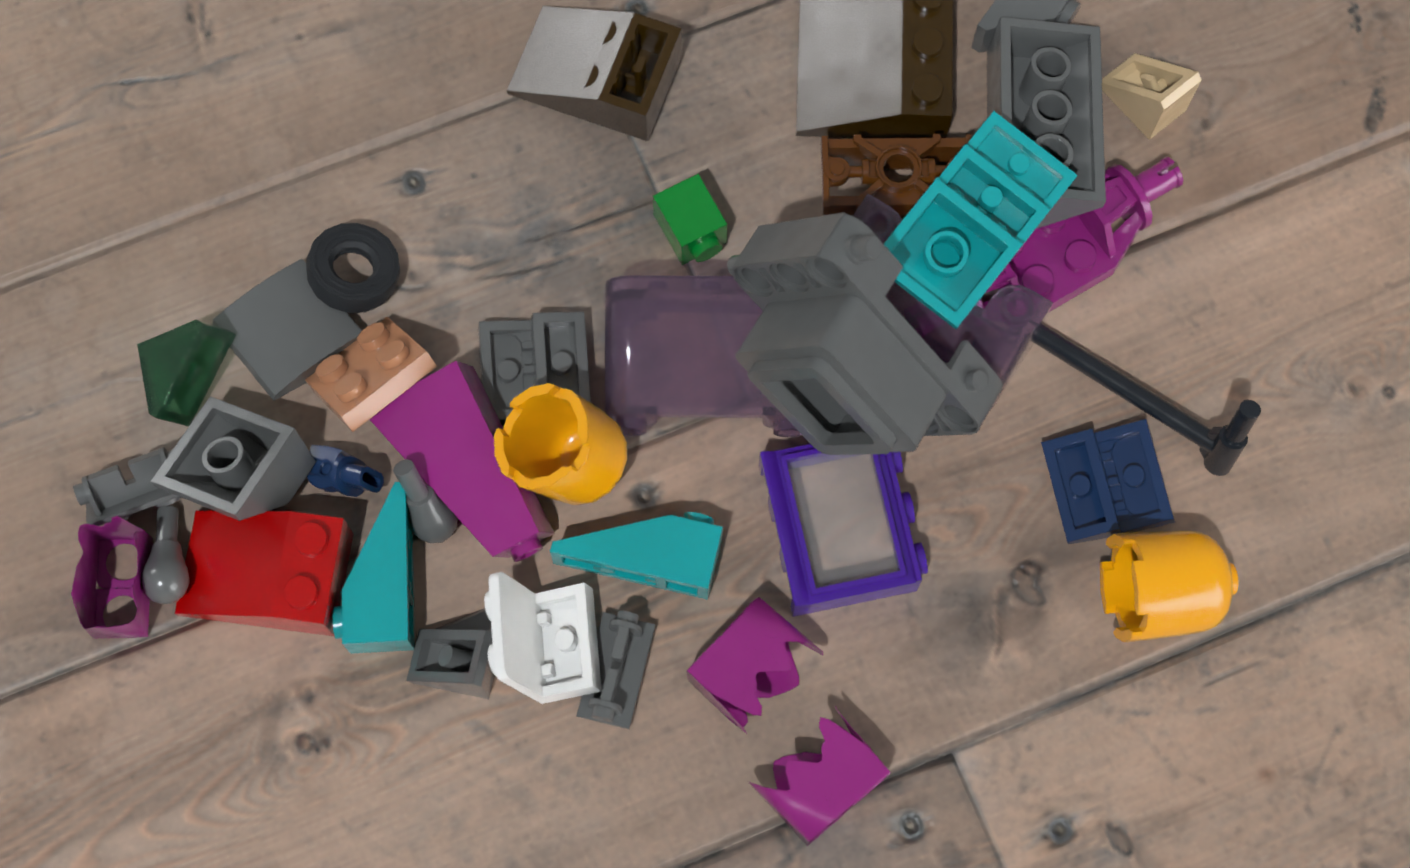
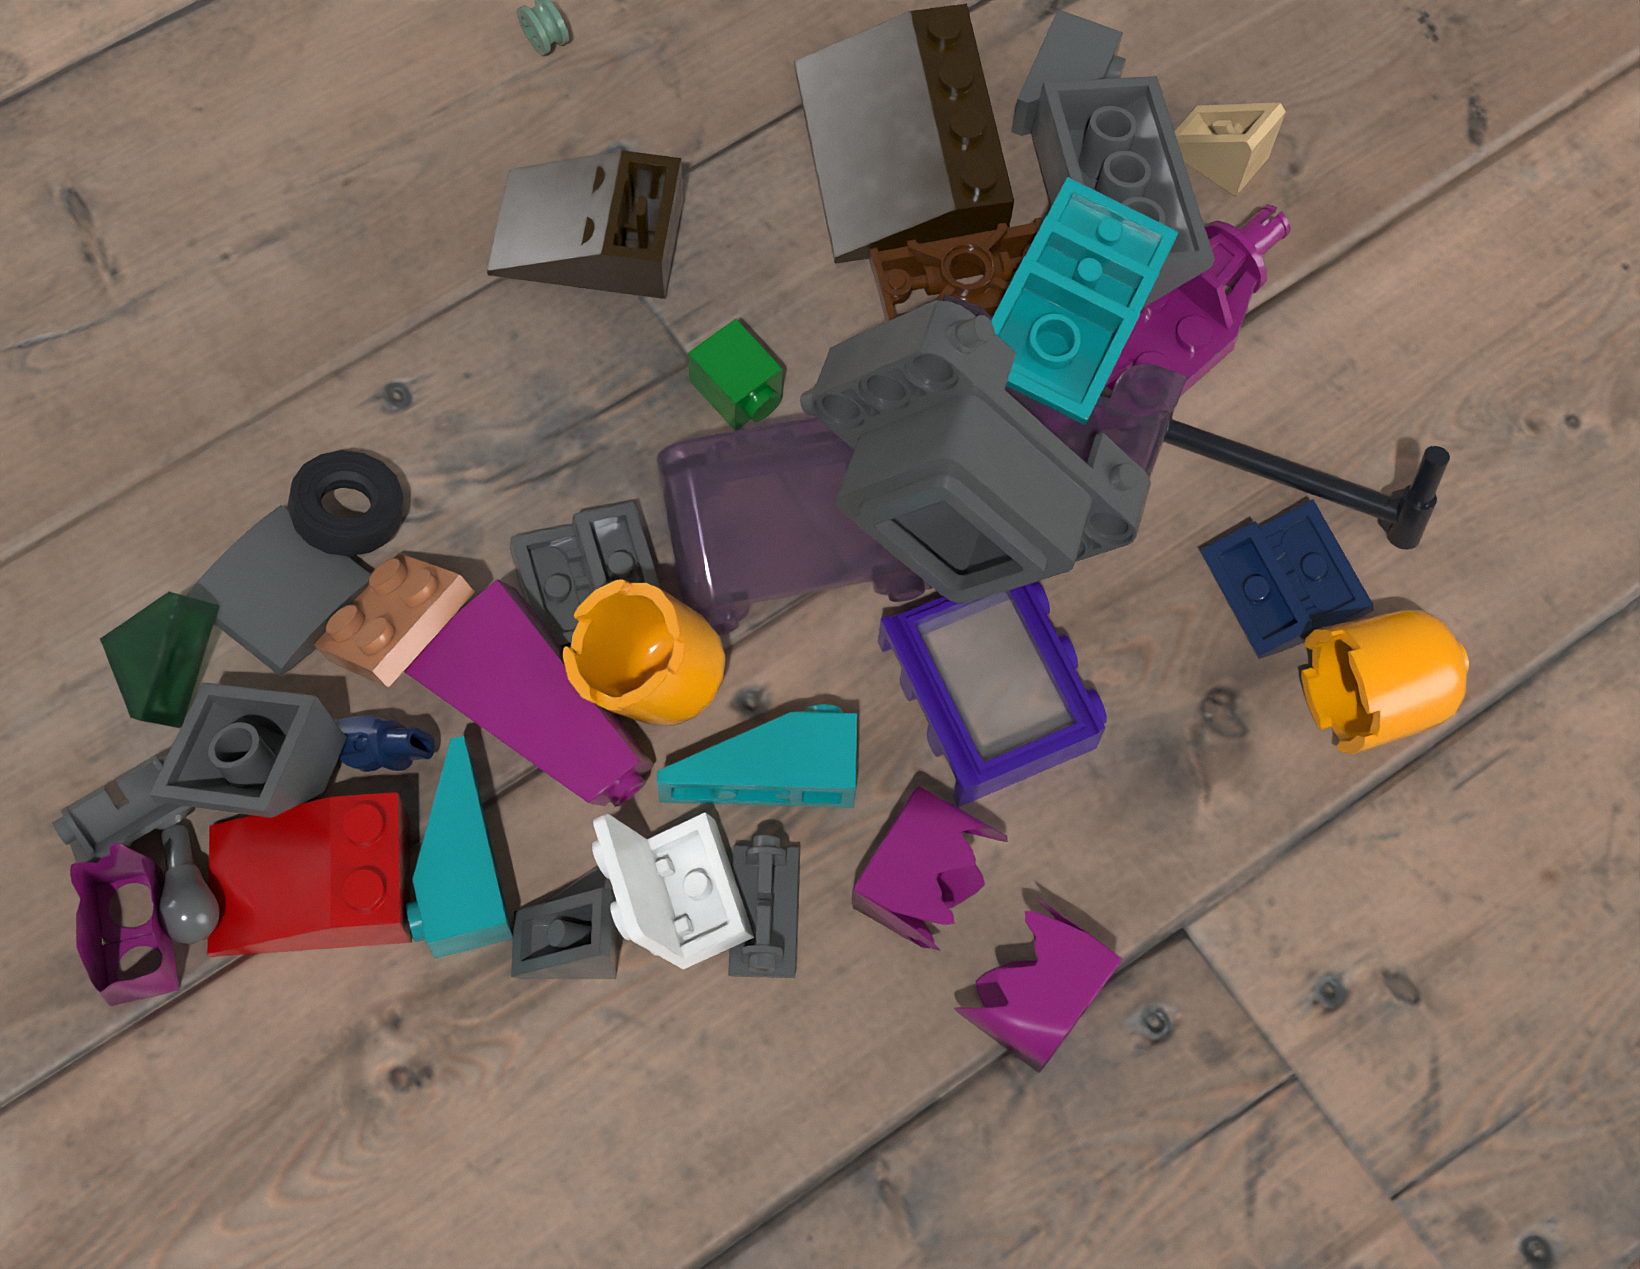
camera: 15 degrees left, 5 degrees down
(427, 512) = (499, 771): dark grey piece -> none

